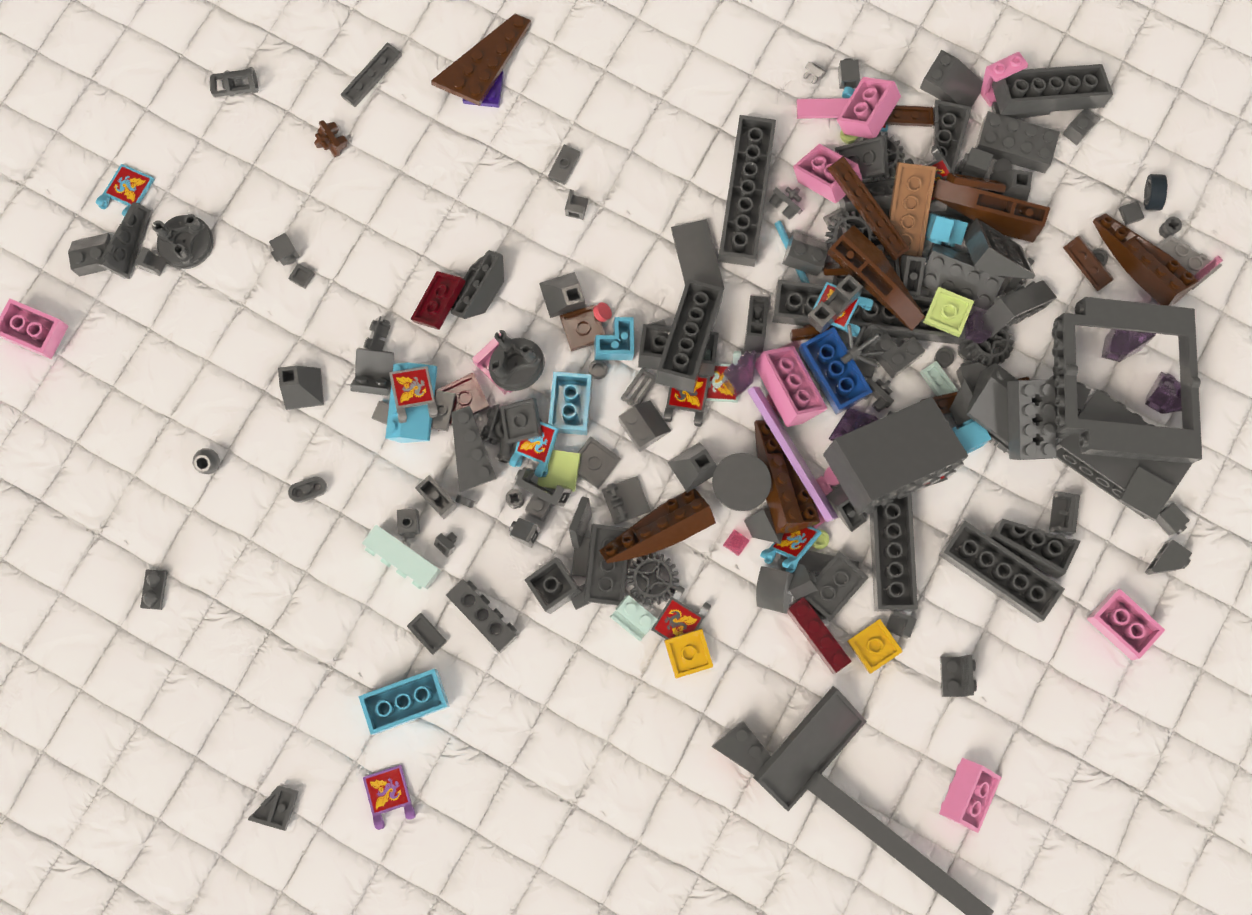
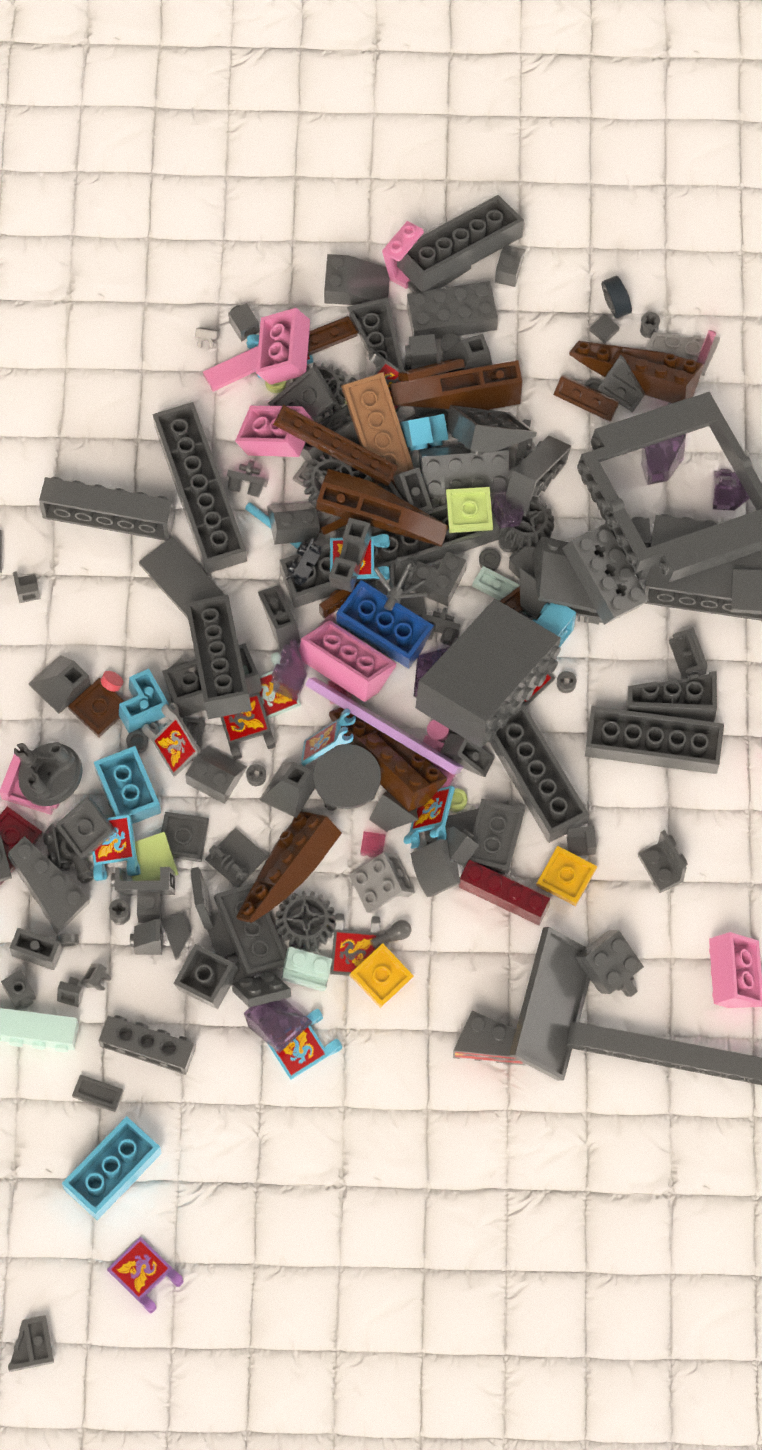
camera: 30 degrees left, 10 degrees down
(469, 540) = (94, 975): none -> dark grey tile
(550, 537) = (177, 933): none -> dark grey tile
(588, 619) = (261, 989): none -> dark grey plate
(589, 649) = (276, 1022): none -> clear purple slope
(597, 677) = (305, 1049): none -> flag
(623, 383) = (173, 741): none -> flag
(667, 173) = (107, 508): none -> dark grey brick
(672, 436) = (251, 770): none -> dark grey bush
(720, 623) = (398, 931): none -> dark grey piece
(727, 577) = (381, 881): none -> light grey bracket
(742, 442) = (327, 738): none -> medium azure flag
(789, 294) = (298, 568): none -> black hinge
(873, 738) = (611, 964): none -> dark grey hinge
(952, 482) = (561, 677): none -> dark grey bush
(1123, 267) = (622, 385): none -> dark grey wing

